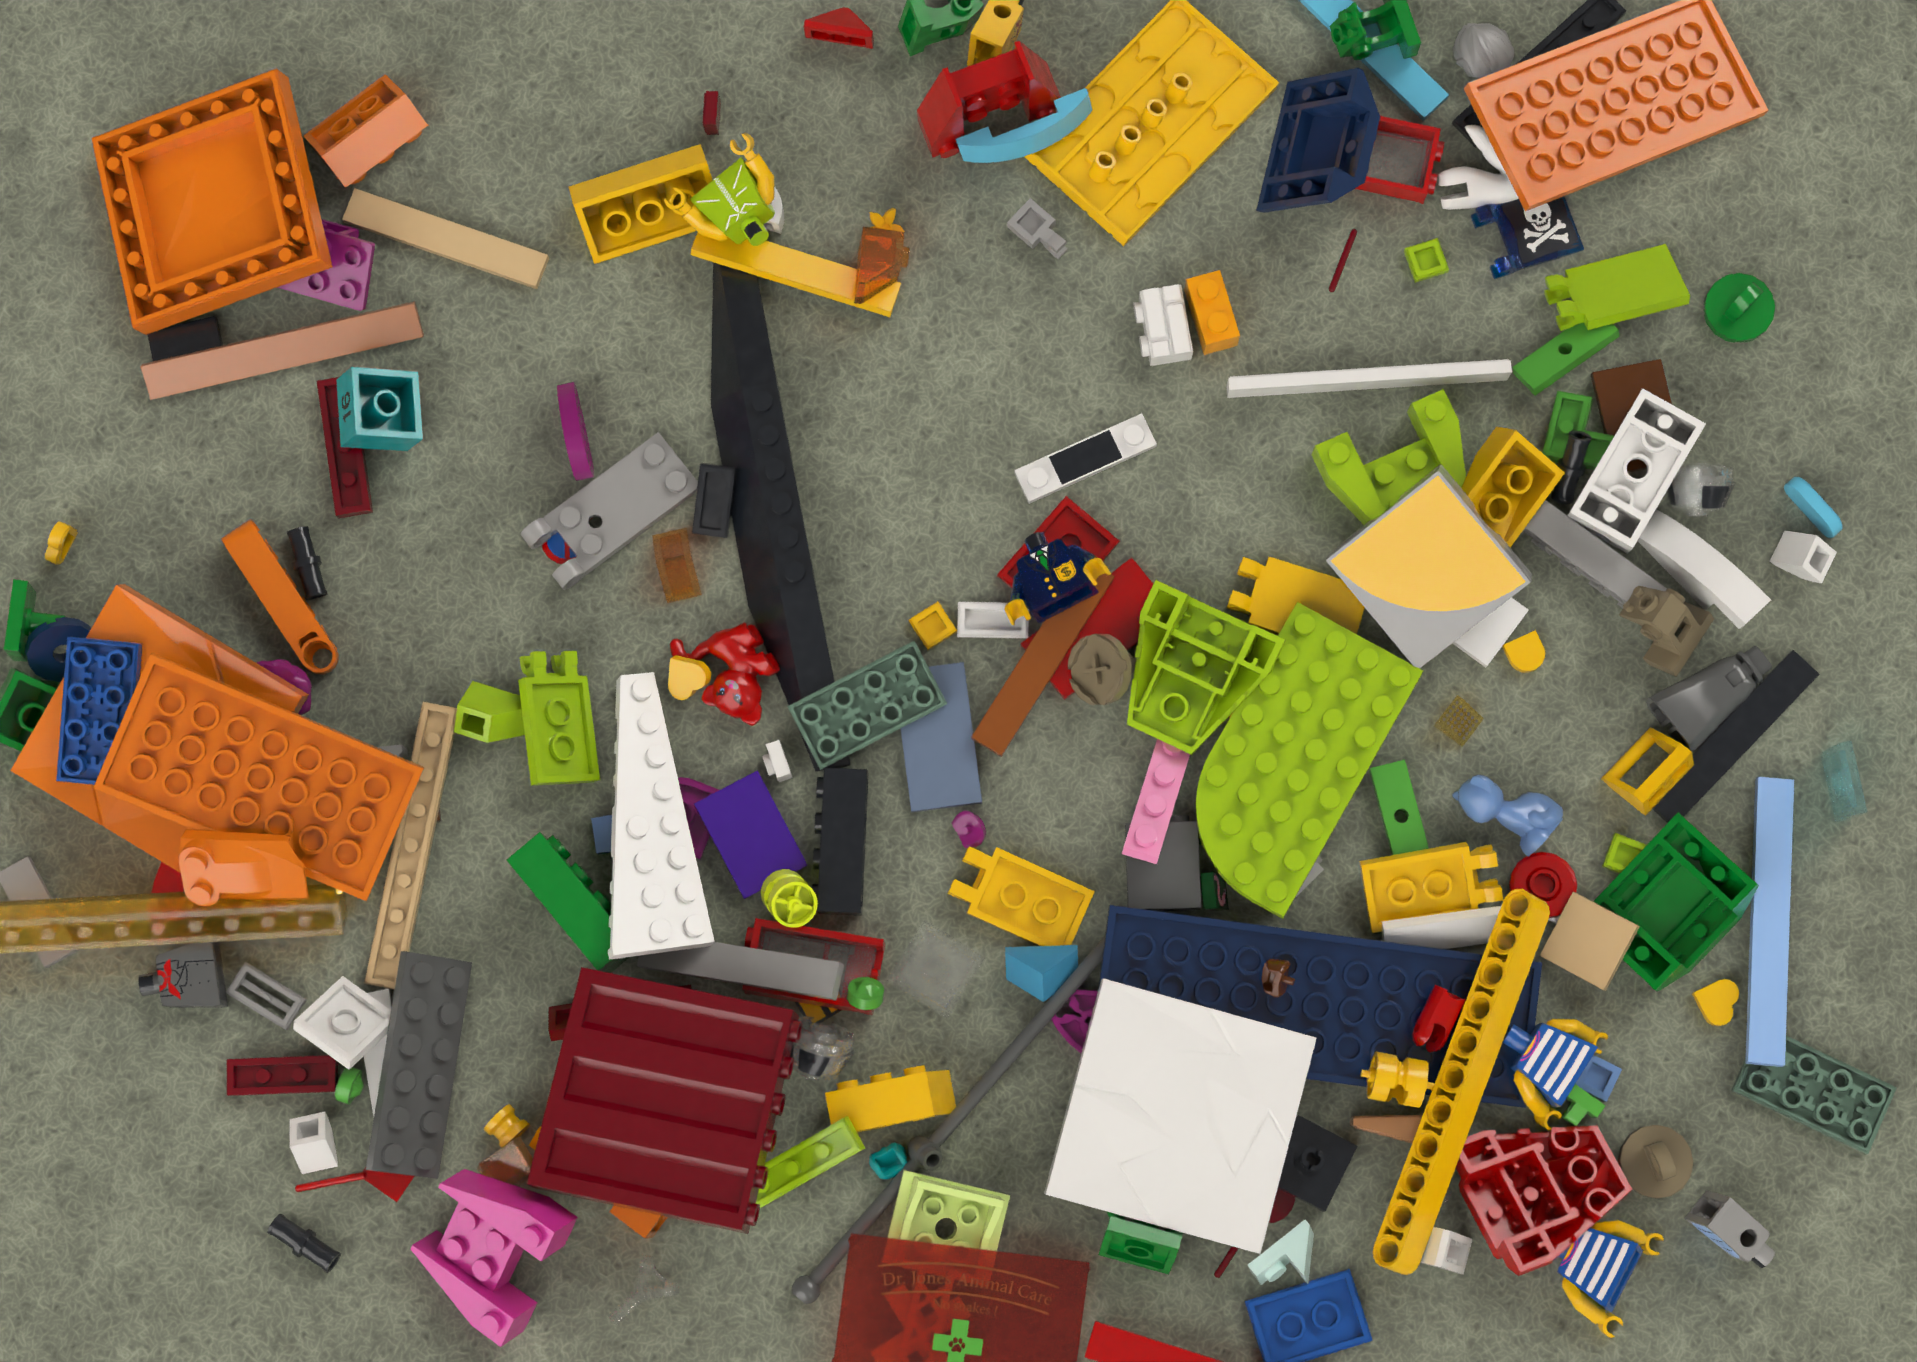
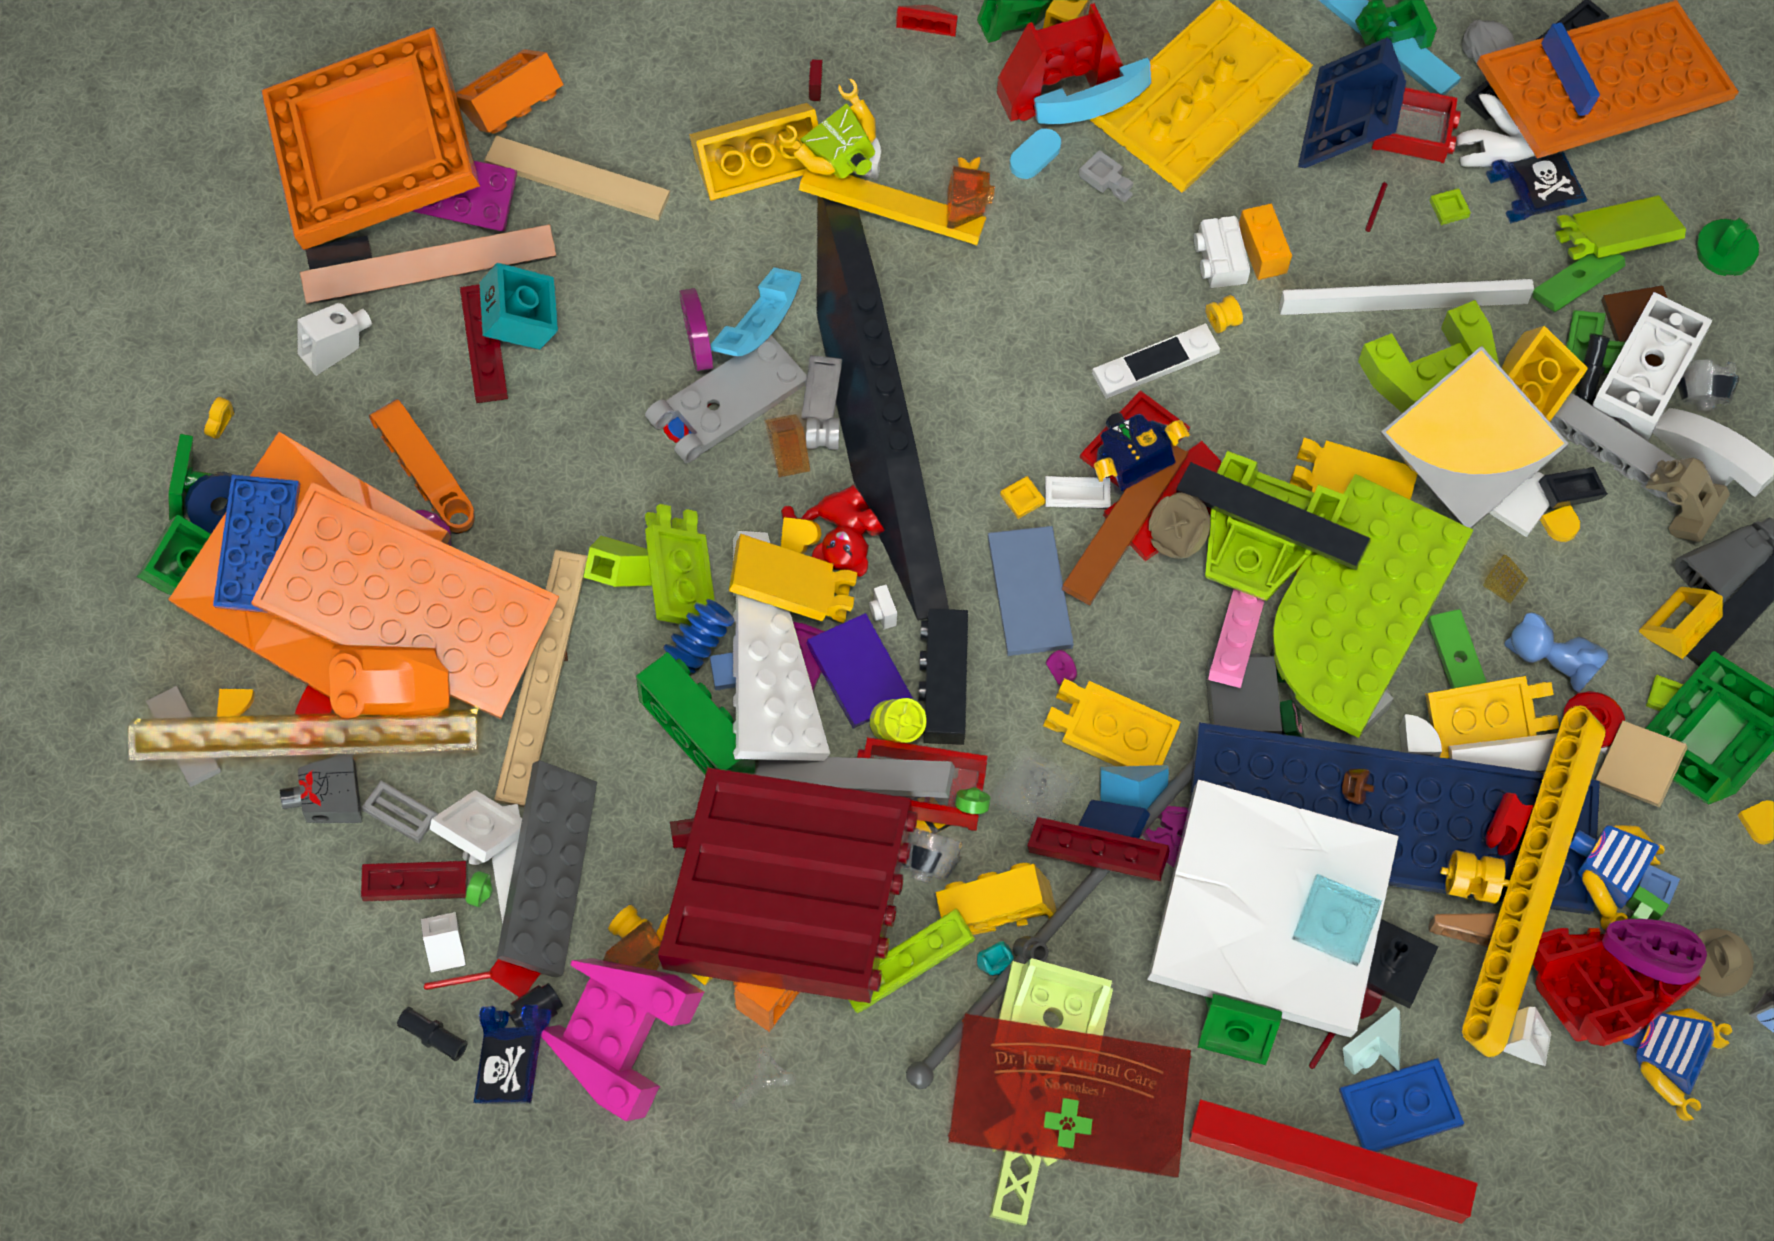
camera: 10 degrees left, 15 degrees down
(88, 875) = (234, 701): none -> yellow tile
(177, 444) = (329, 336): none -> white torso
(307, 563) = (447, 437): black pin -> none
(382, 1271) = (509, 1055): none -> flag
(409, 1216) = (542, 996): none -> black brick
(577, 800) = (701, 634): none -> blue piece
(649, 414) = (764, 316): none -> medium azure slope
(674, 736) = (790, 580): none -> yellow tile
(714, 554) = (822, 433): none -> light grey wheel
(867, 705) = (966, 558): sand green tile -> none
(959, 200) = (1035, 153): none -> medium azure tile
(998, 1045) = (1098, 848): none -> dark red plate
(1017, 1009) = (1115, 818): none -> dark blue tile
(1163, 402) = (1224, 314): none -> yellow wheel
(1201, 661) = (1274, 516): none -> black tile
(1244, 1135) = (1337, 920): none -> clear light blue tile
(1350, 913) = (1419, 737): none -> white brick
(1539, 611) = (1572, 487): none -> black tile
(1569, 100) = (1570, 69): none -> blue tile
(1597, 1140) = (1637, 951): none -> magenta piece

